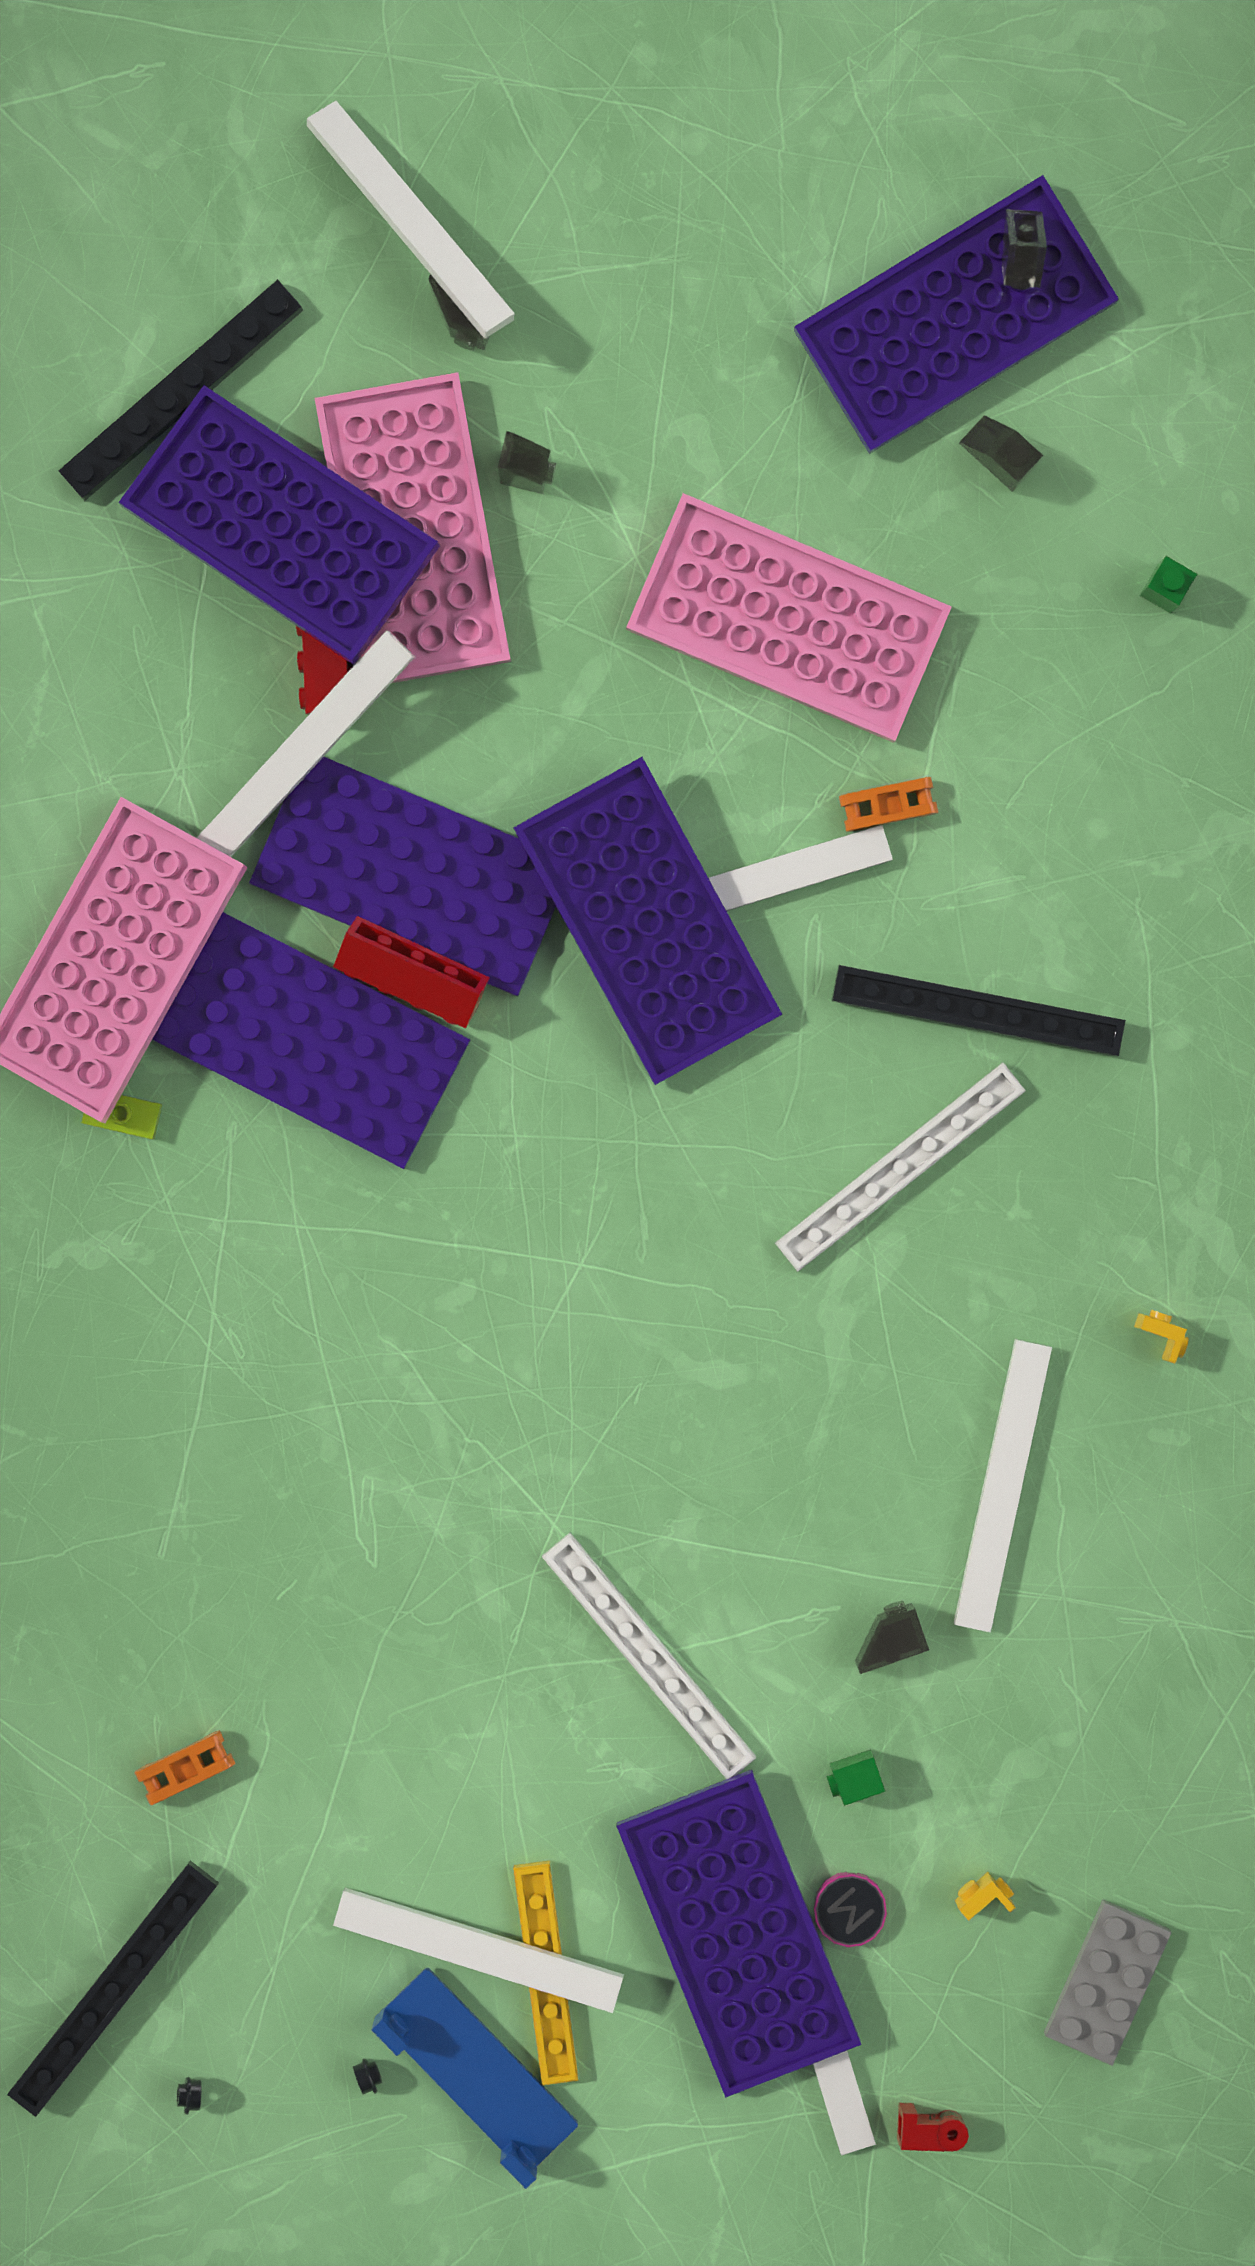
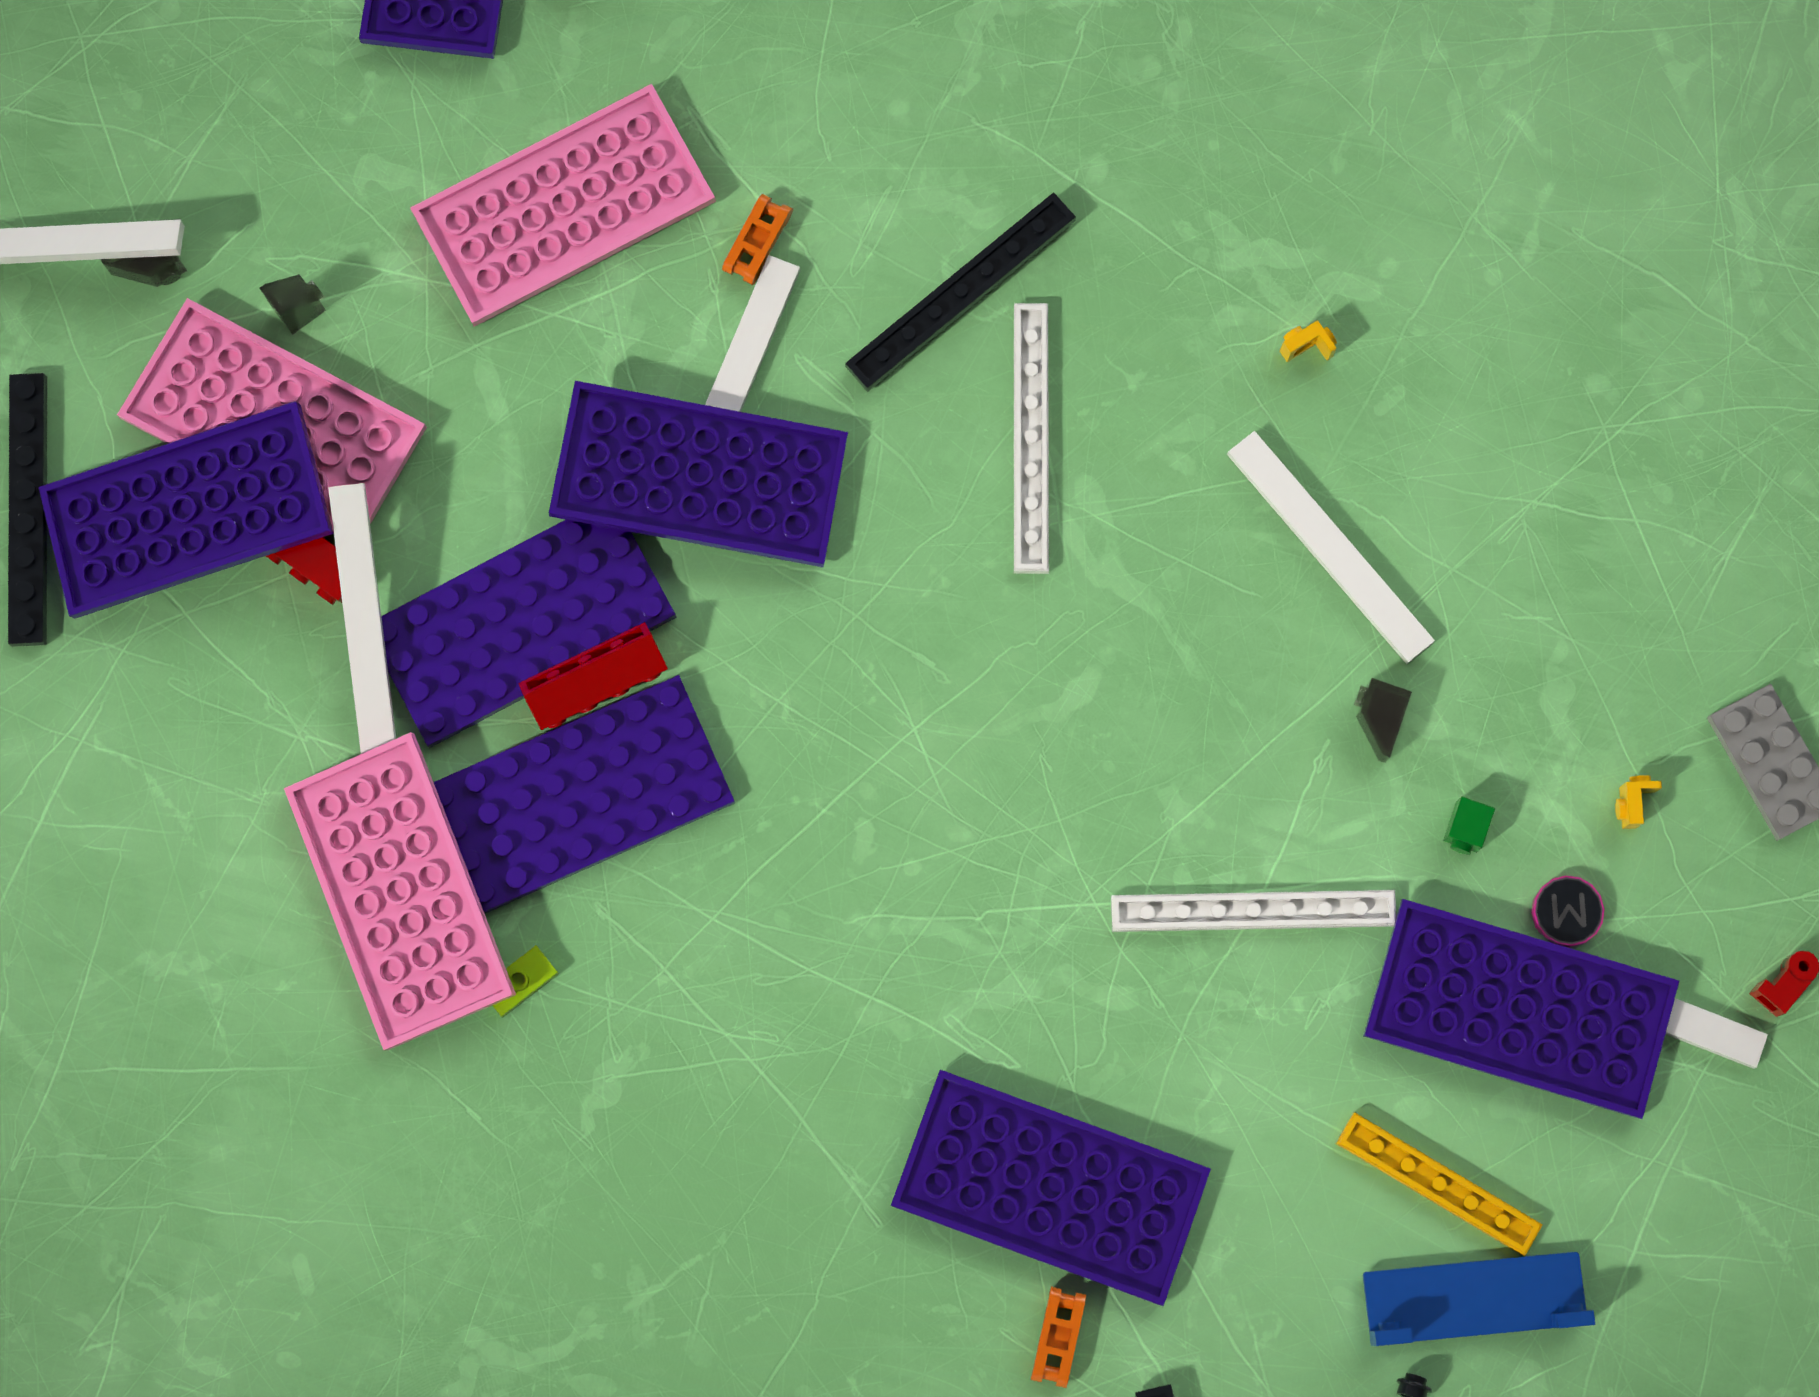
camera: 50 degrees left, 10 degrees down
(296, 1670) = (1051, 1187): none -> dark purple plate
(478, 1950) = (1379, 1219): white tile -> none

